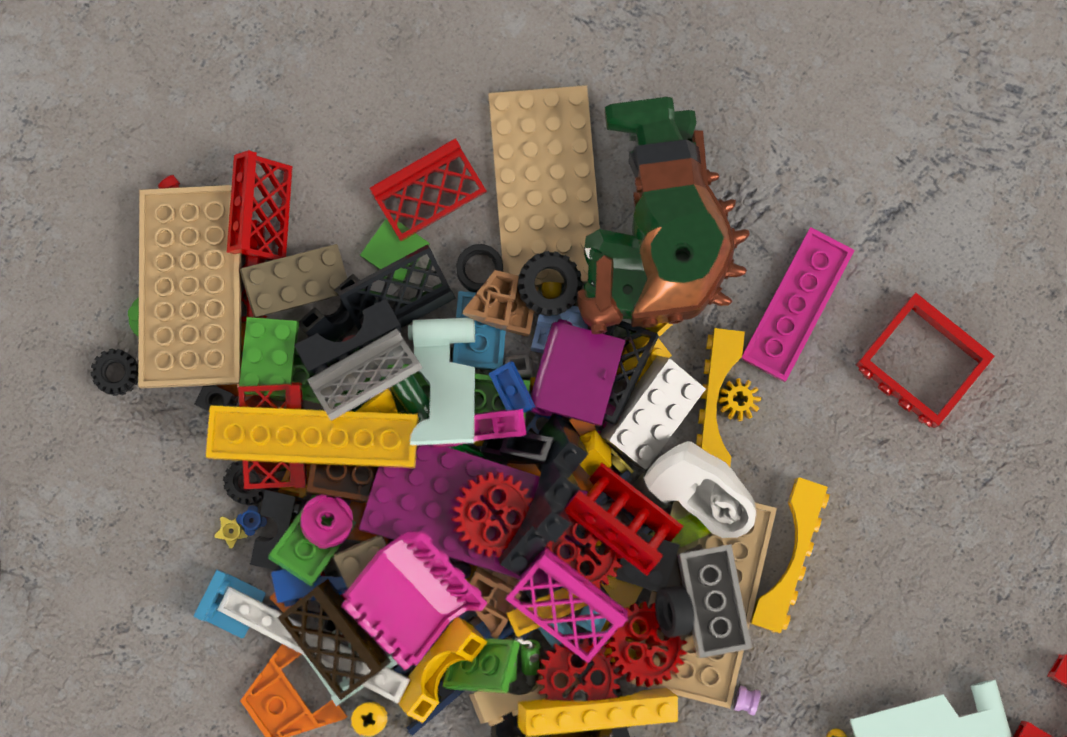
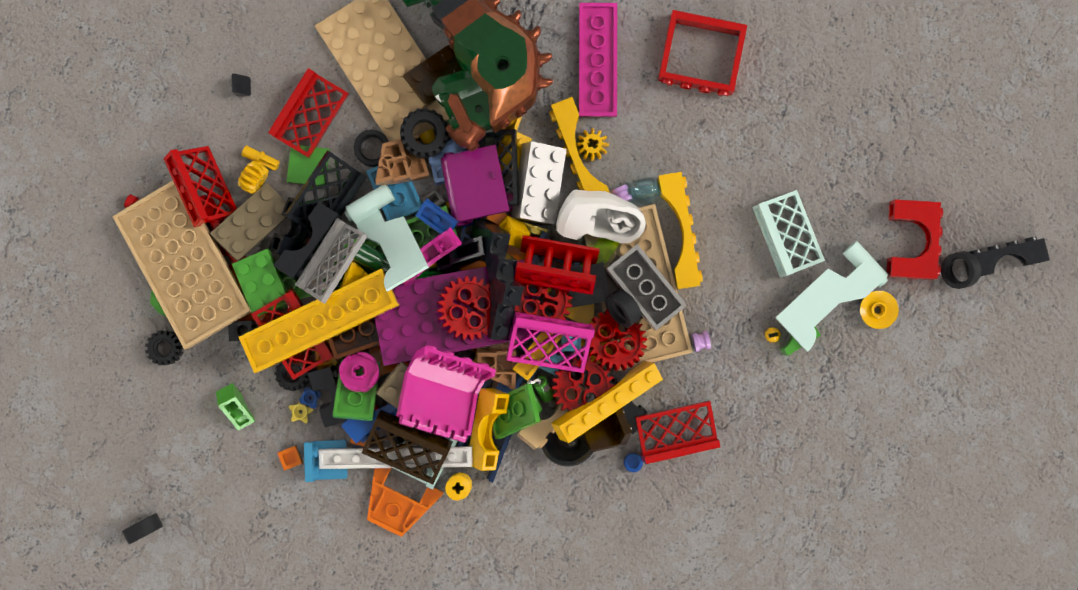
camera: 25 degrees left, 5 degrees up
(158, 484) = (234, 406): none -> bright green arch
(190, 578) = (290, 457): none -> orange plate
(324, 229) = (253, 177): none -> yellow gear
(344, 212) = (260, 157): none -> yellow axle
(367, 117) = (241, 85): none -> black slope
(588, 216) = (426, 73): none -> dark brown plate
(744, 474) = (622, 192): none -> lavender wheel
(774, 486) = (645, 190): none -> clear light blue head
(896, 627) = (773, 238): none -> light aqua fence

